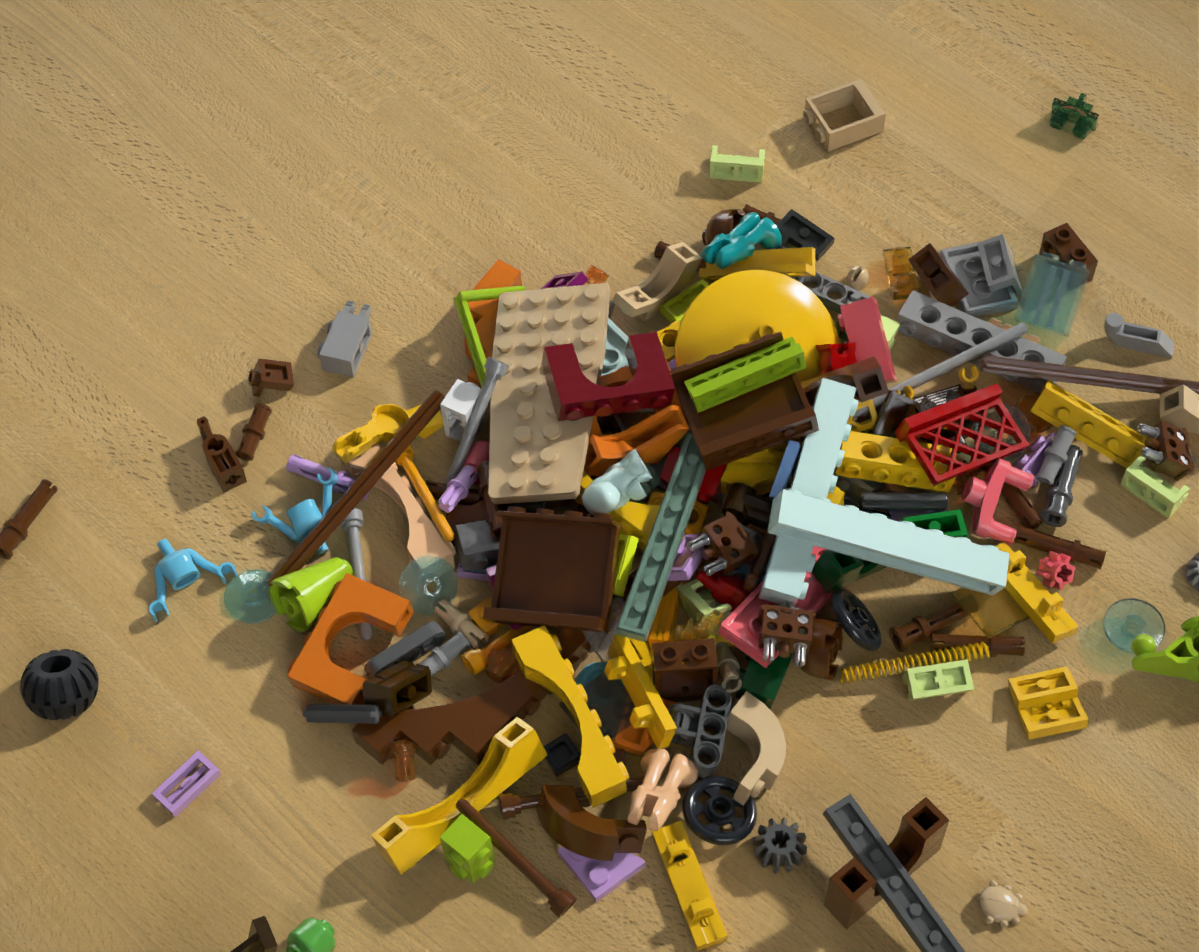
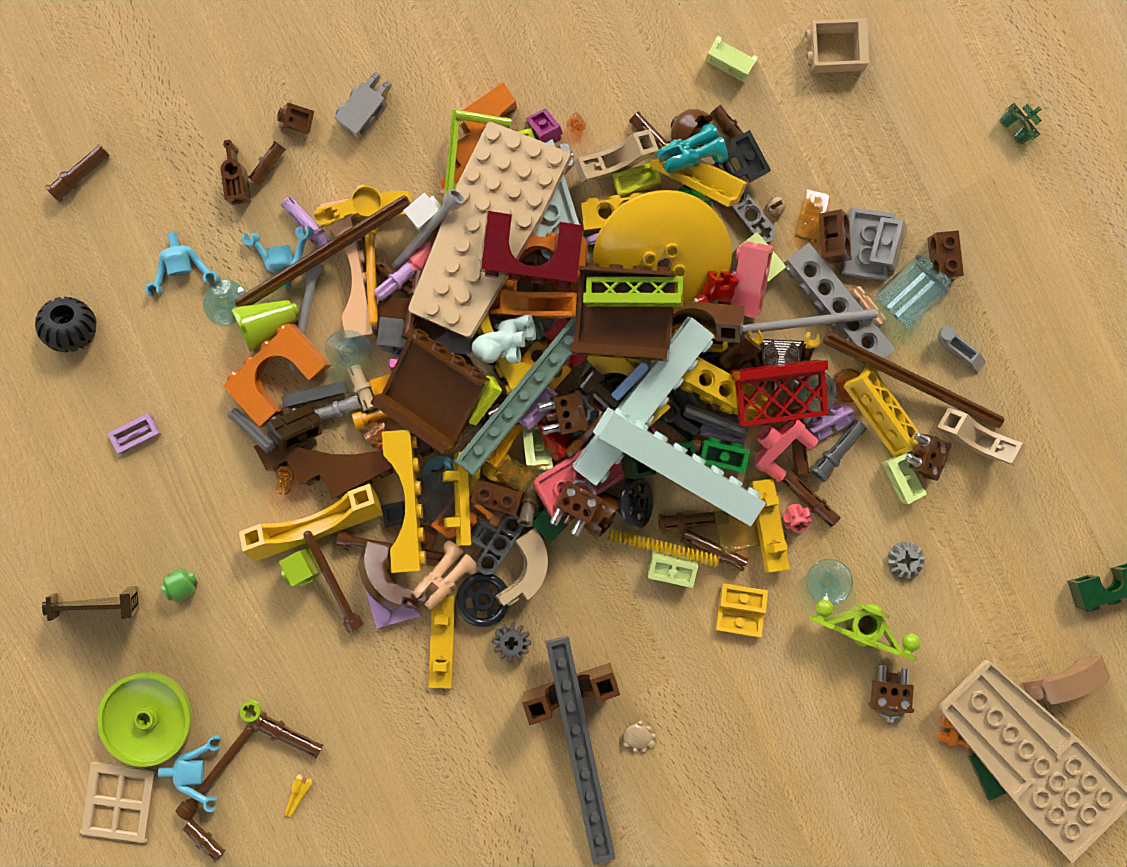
camera: 20 degrees right, 30 degrees up
(1056, 455) = (844, 428): light grey pin -> none

